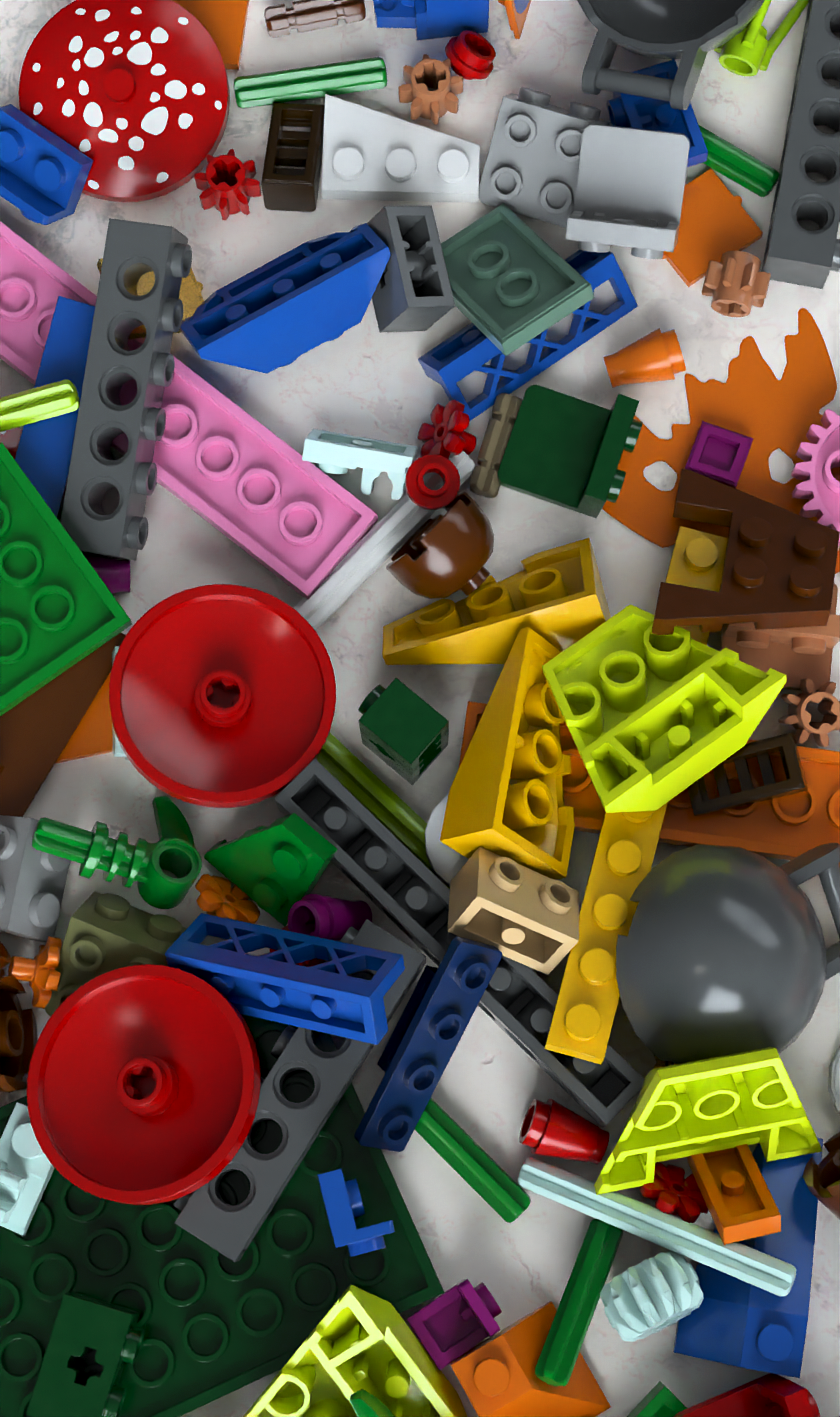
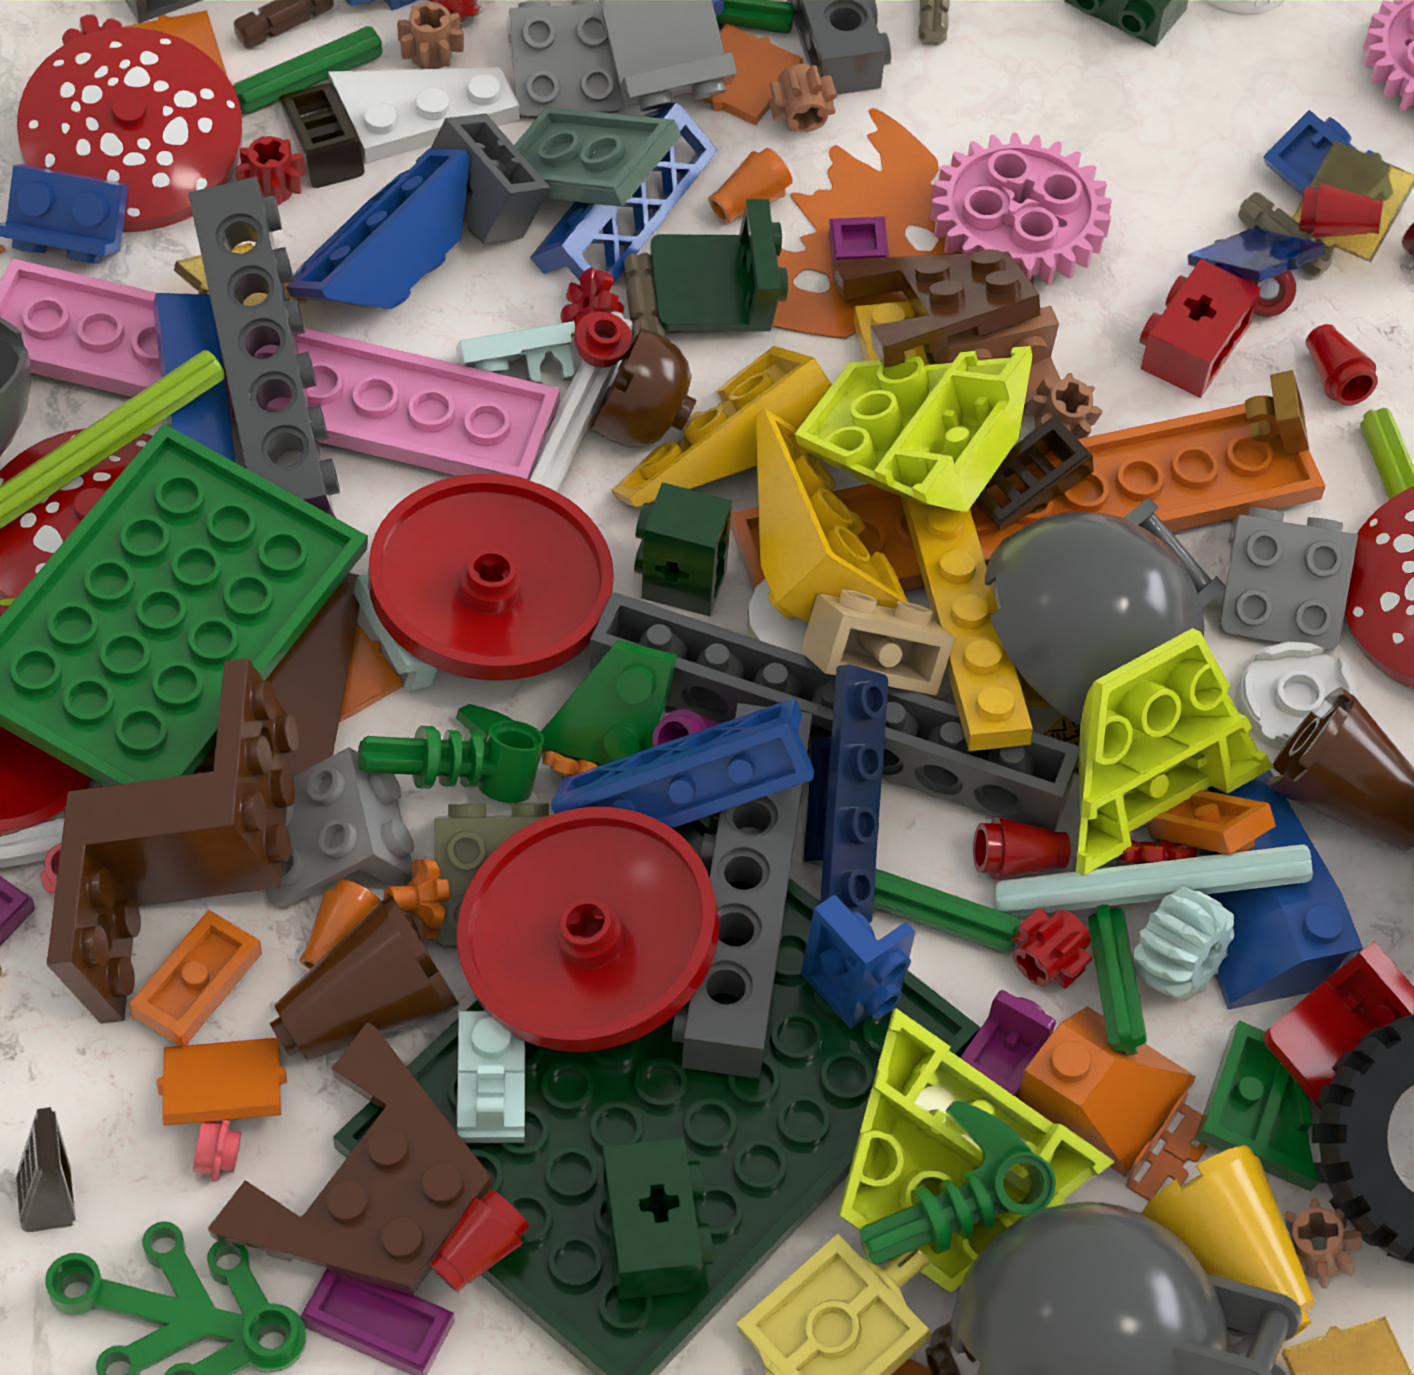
camera: 30 degrees left, 20 degrees down
(541, 1244) = (1051, 948): none -> red gear

